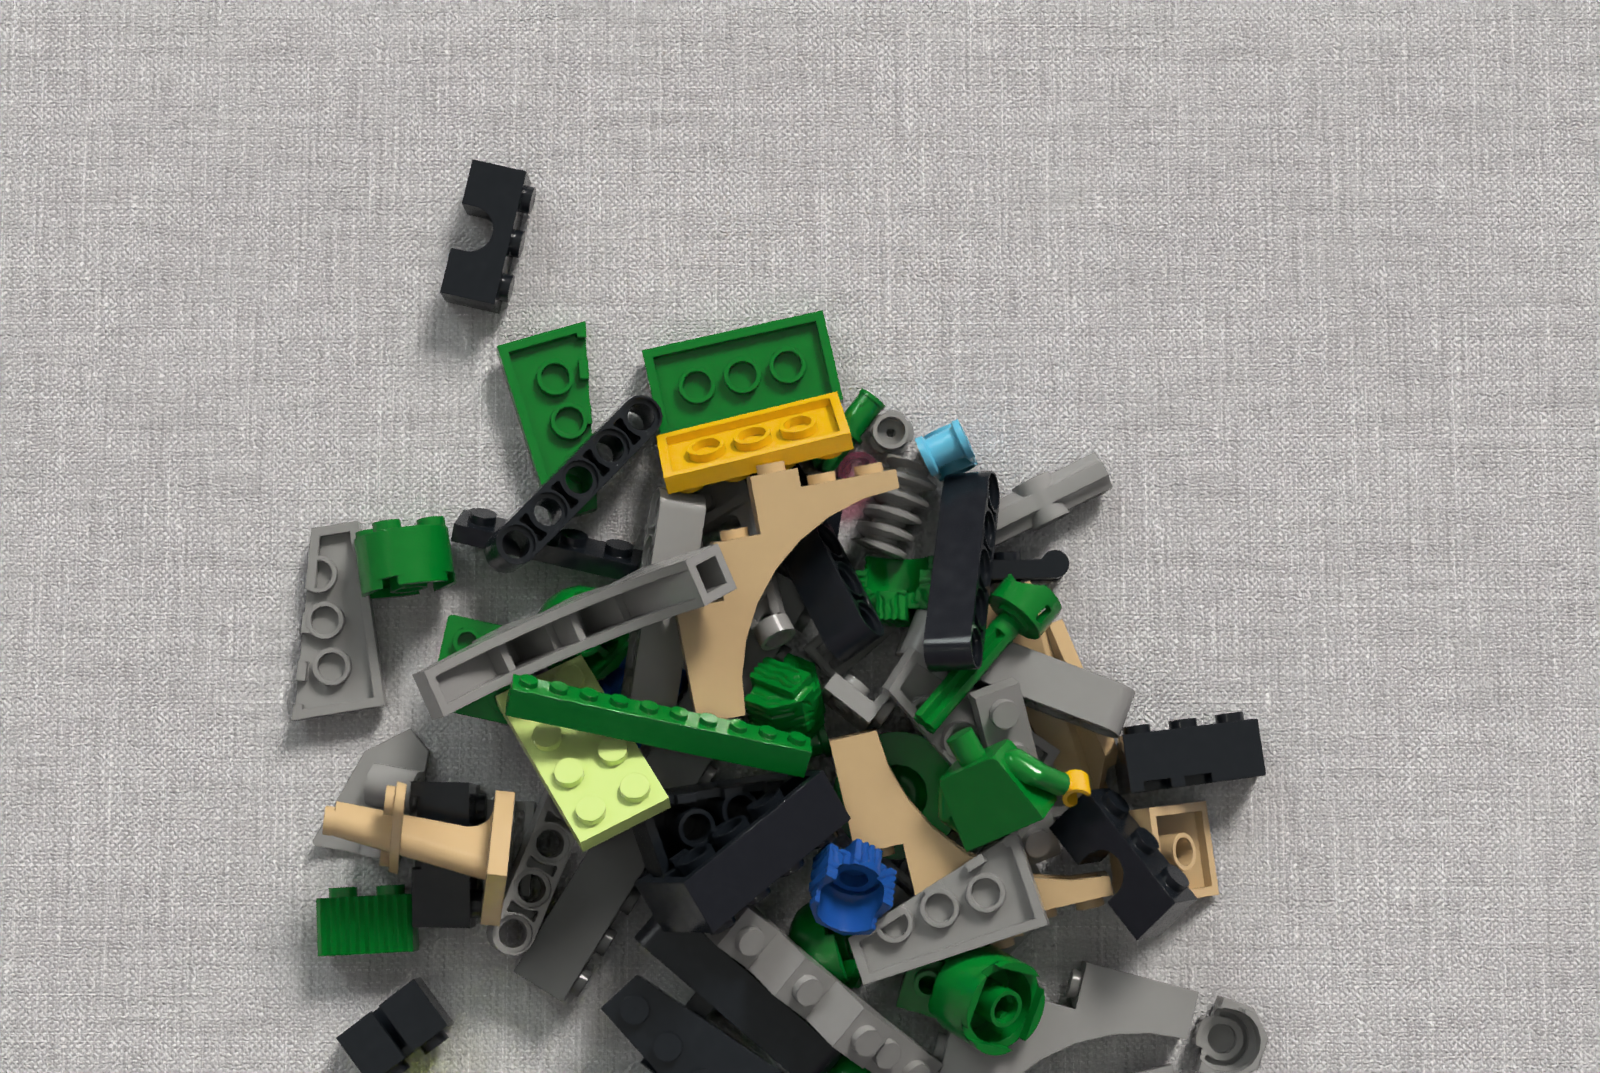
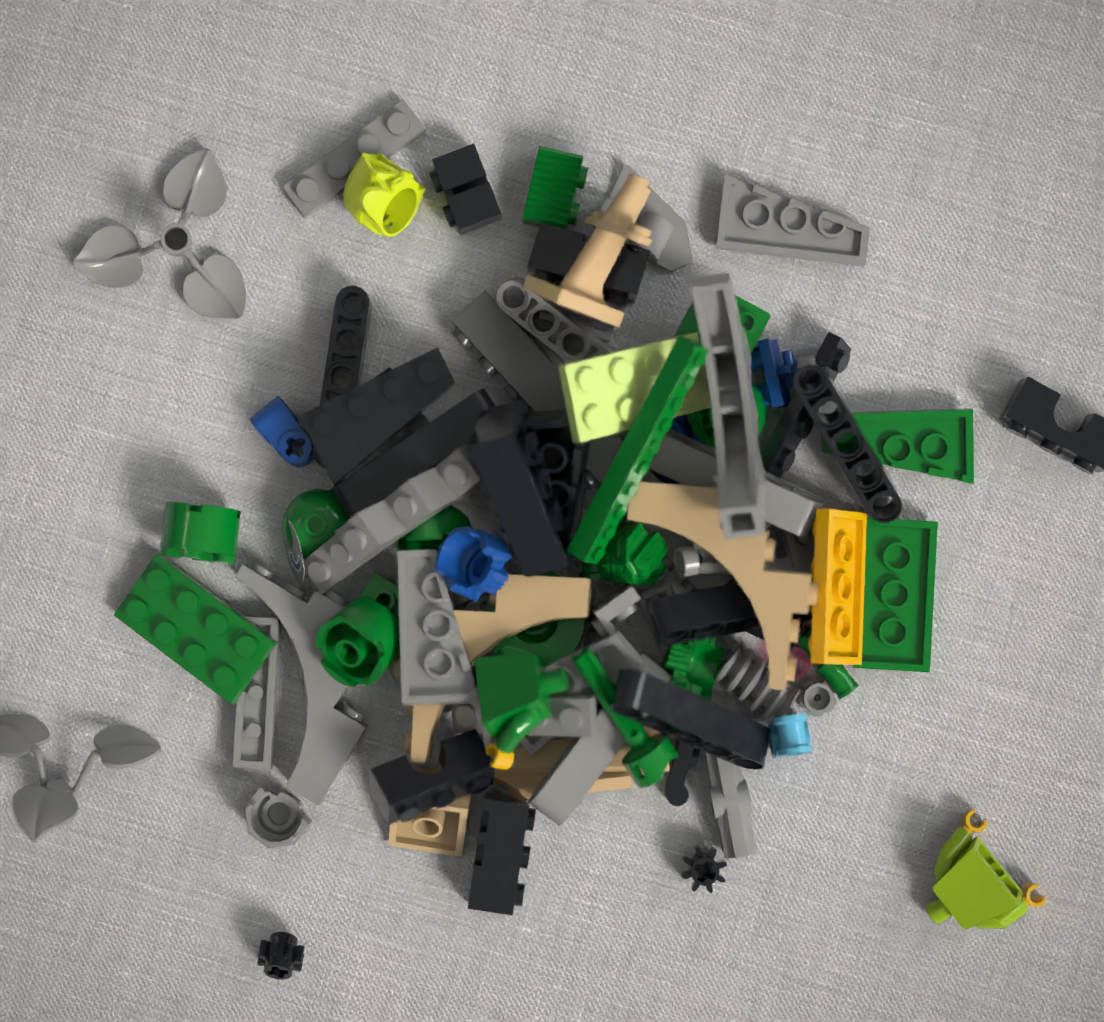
camera: 110 degrees right, 5 degrees up
(402, 560) = (825, 292): green brick -> none
(502, 603) = (768, 357): none -> blue hips
(1054, 189) = (975, 884): none -> lime torso
(1144, 502) = (706, 879): none -> black gear
(1391, 985) = (280, 955): none -> black gear

